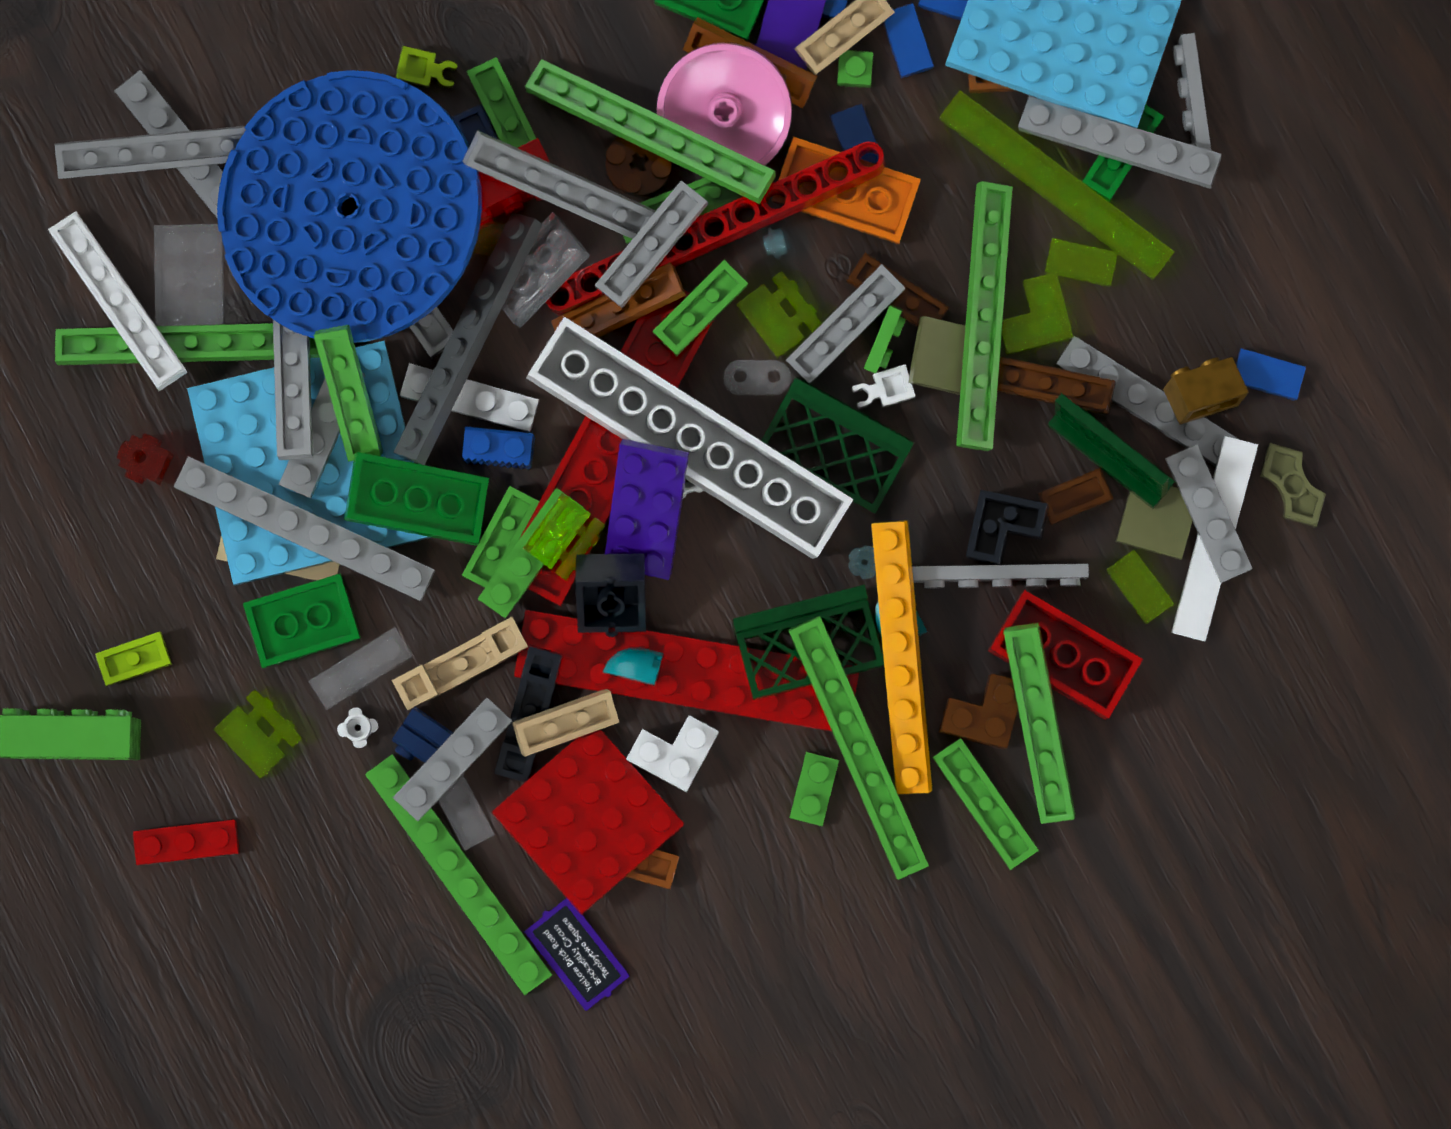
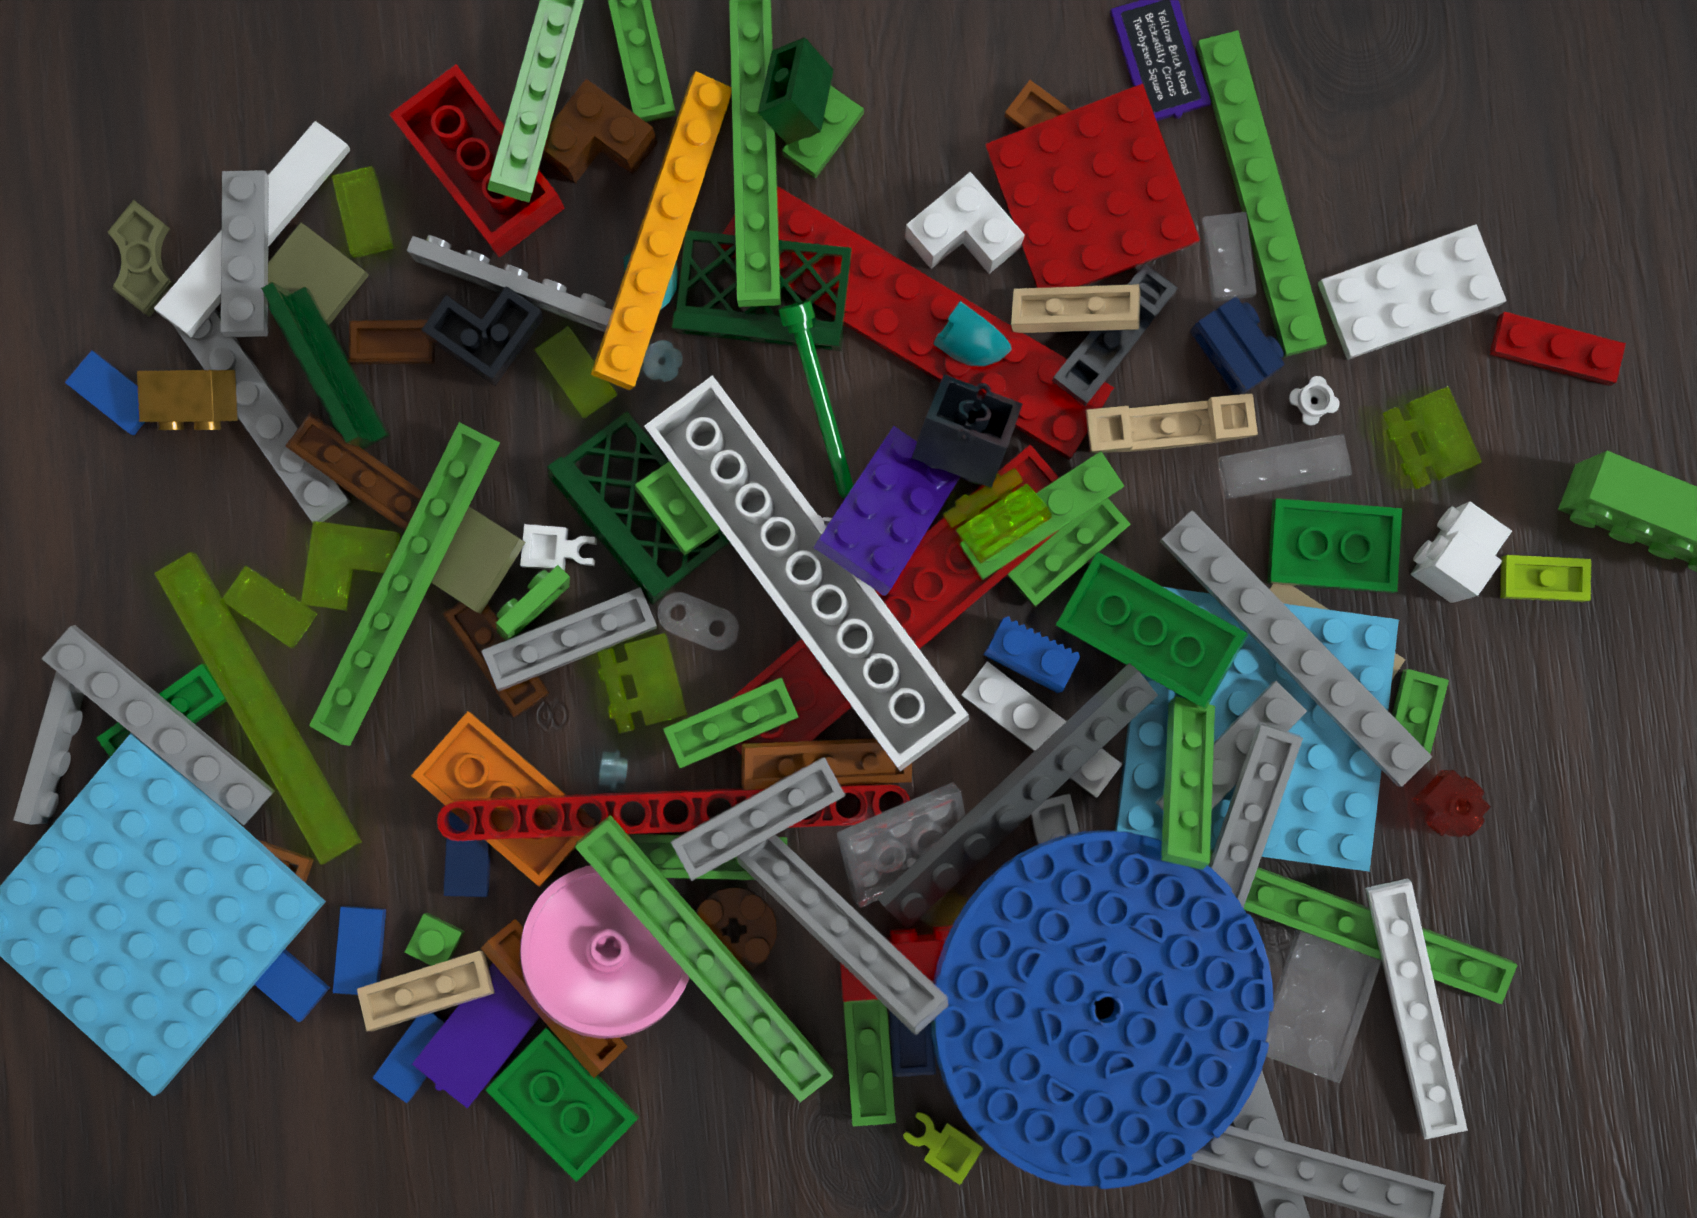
camera: 155 degrees left, 0 degrees up
(194, 523) = (1420, 705): none -> bright green plate
(205, 651) = (1461, 554): none -> white brick
(313, 842) = (1411, 292): none -> white plate
(452, 759) = (1224, 311): light grey plate -> none
(770, 624) = (799, 321): none -> green piece
(806, 450) = (677, 508): none -> bright green plate
(843, 803) = (796, 91): none -> dark green brick
(928, 528) = (572, 370): none -> clear neon green tile

